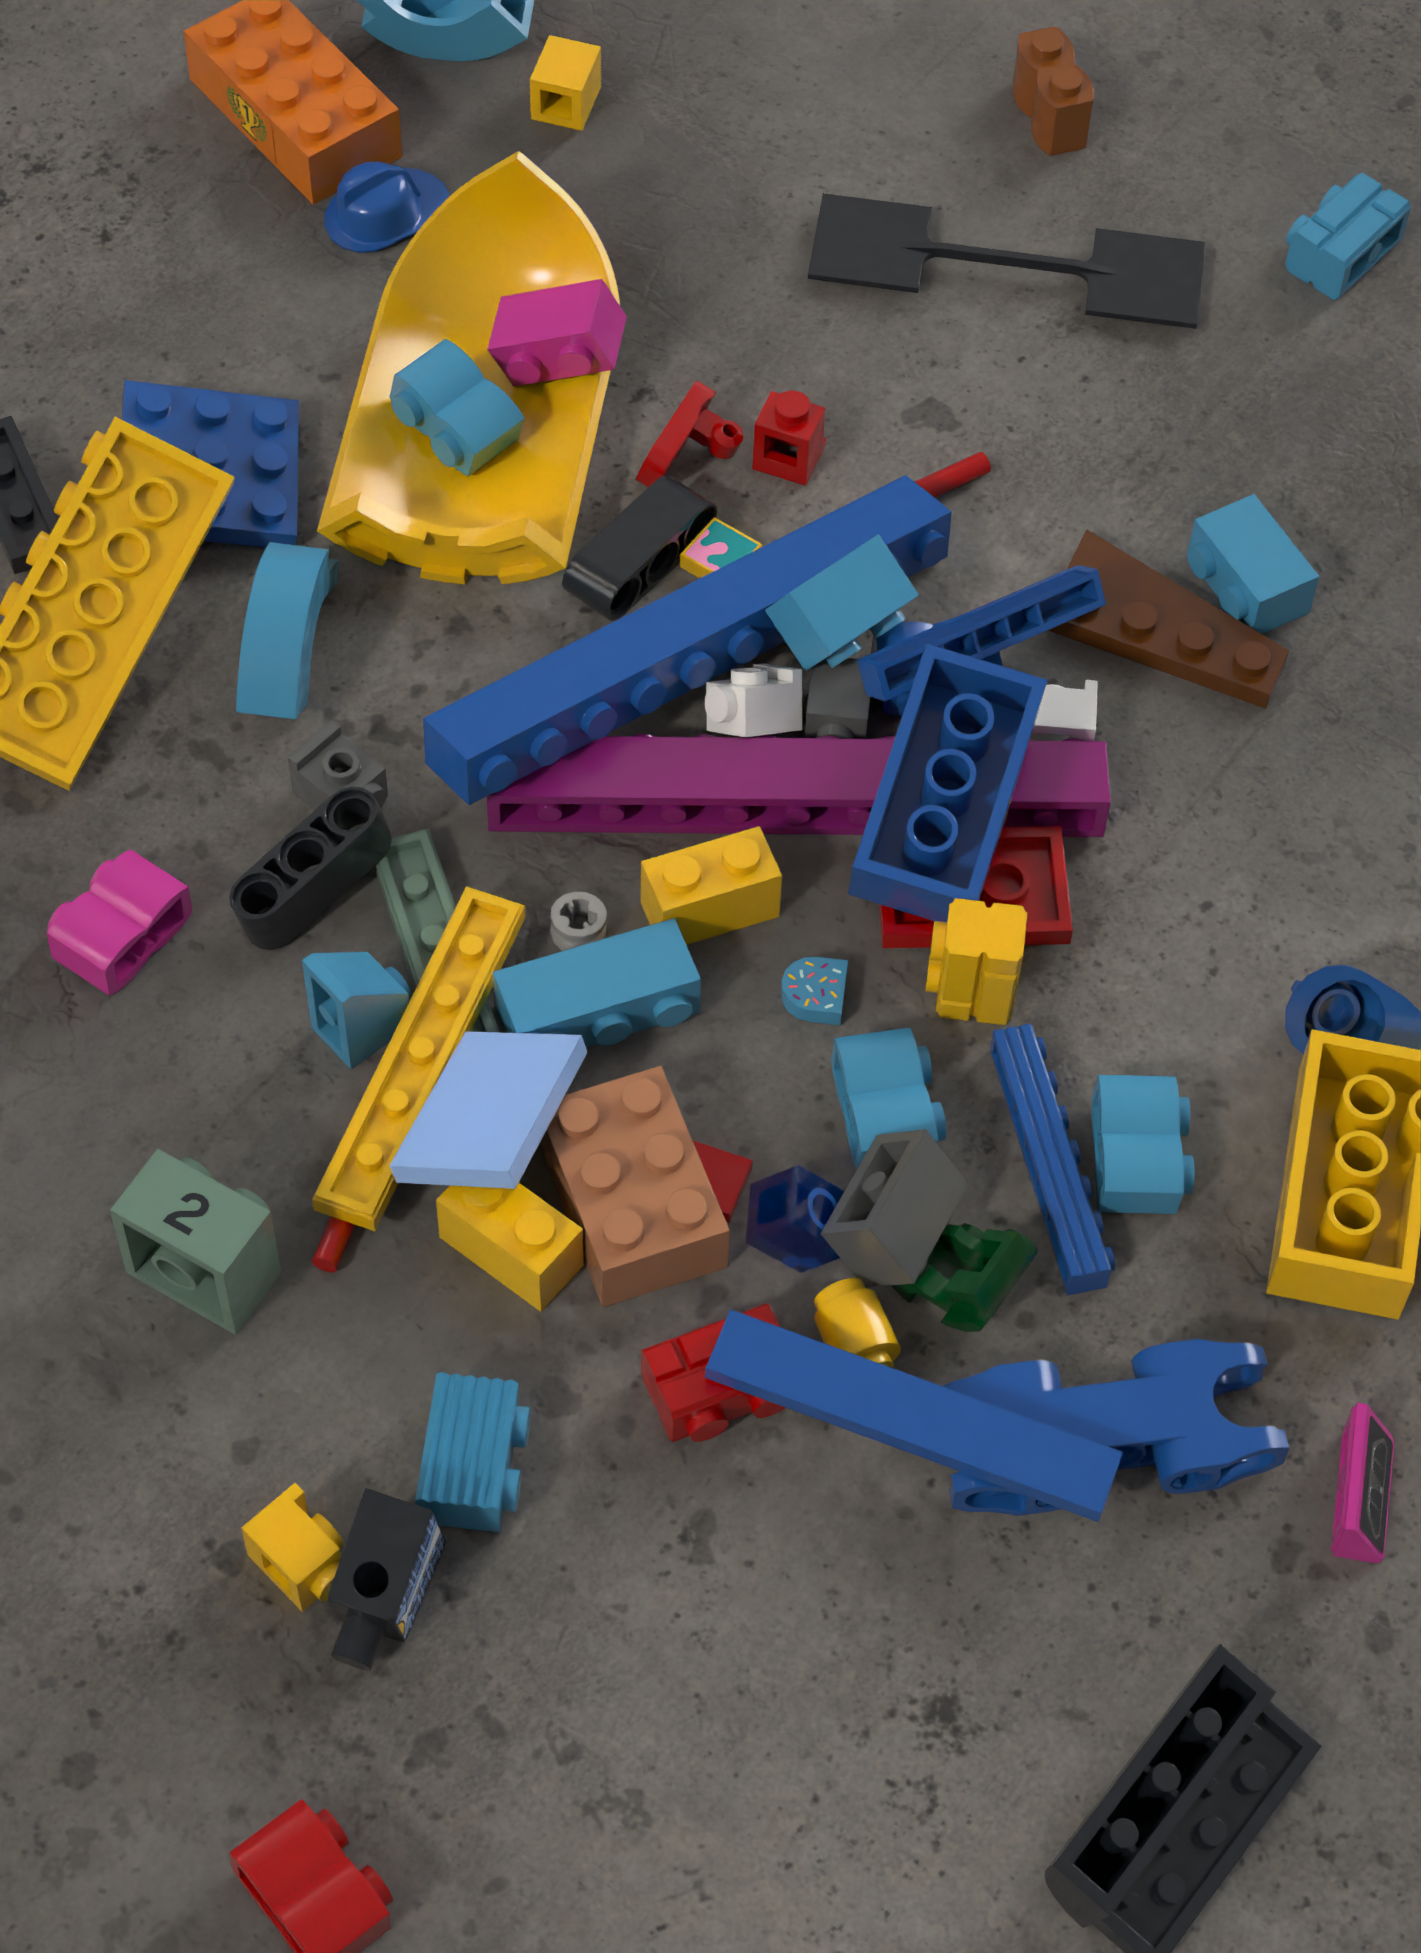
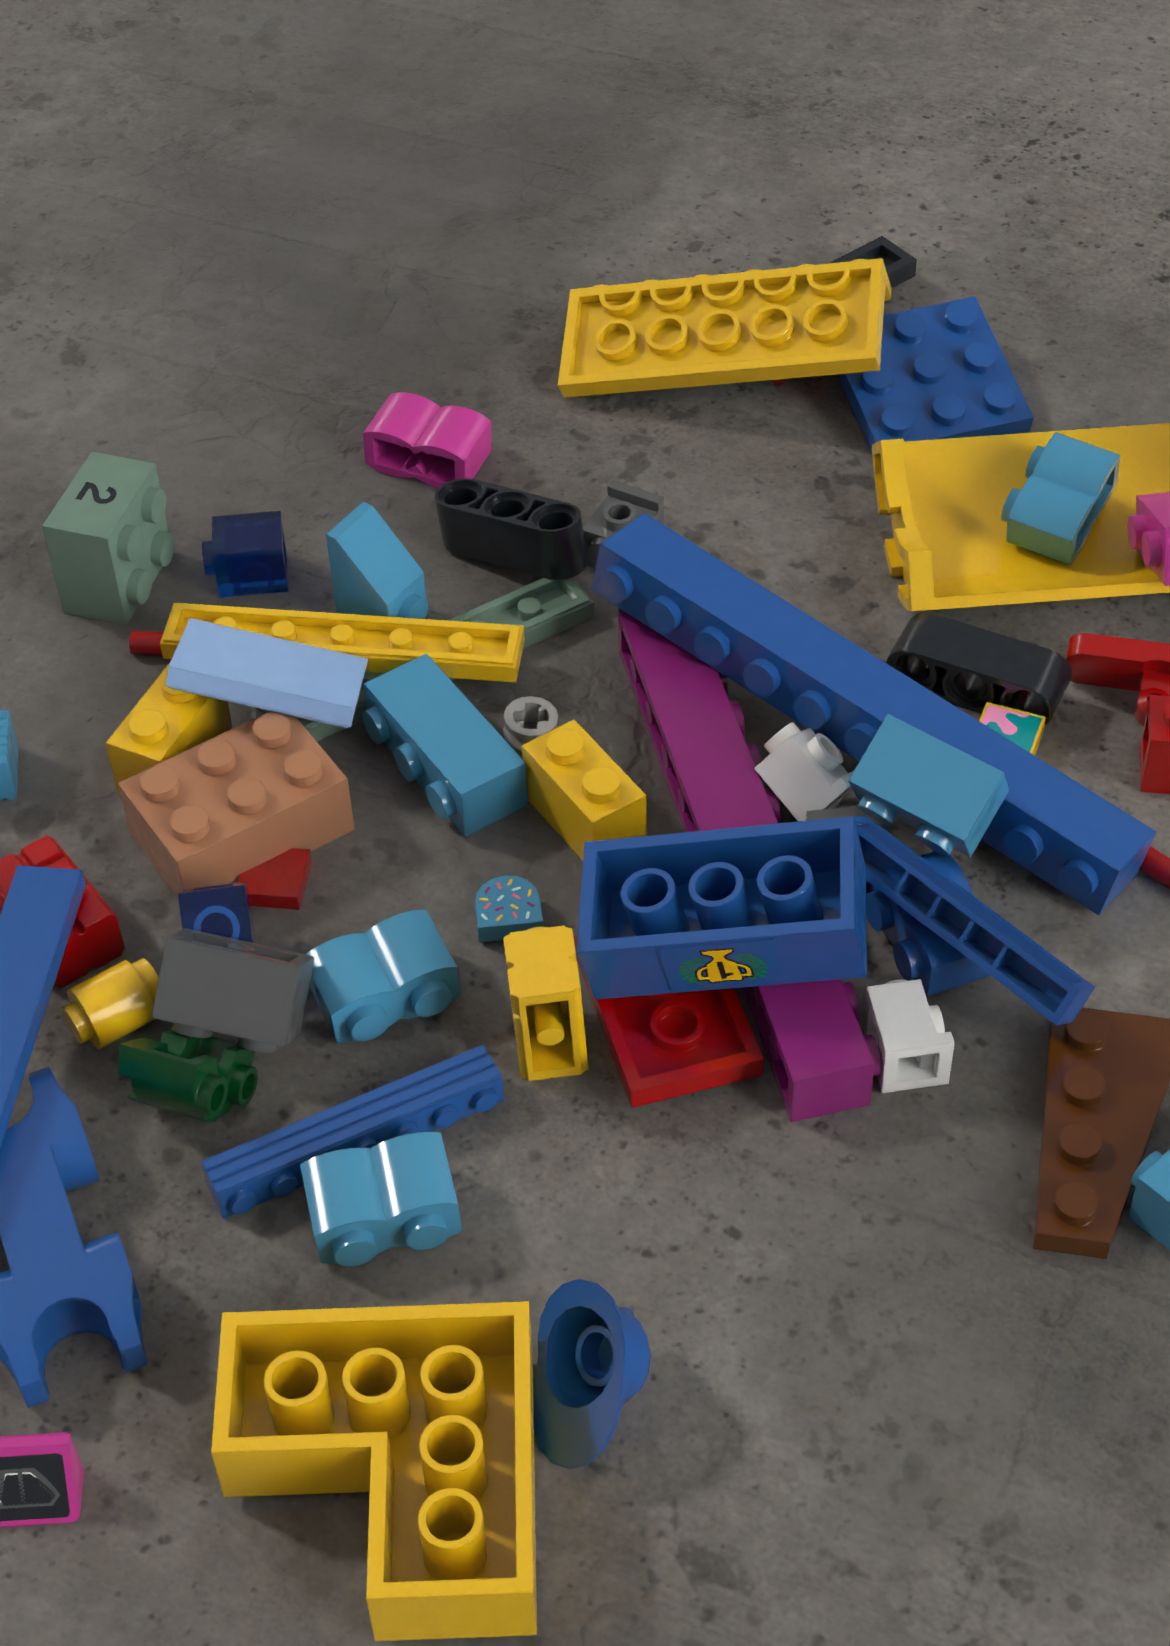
camera: 80 degrees right, 10 degrees down
(242, 1122) = (247, 554): none -> clear blue brick
(282, 629) = (759, 437): dark azure arch -> none

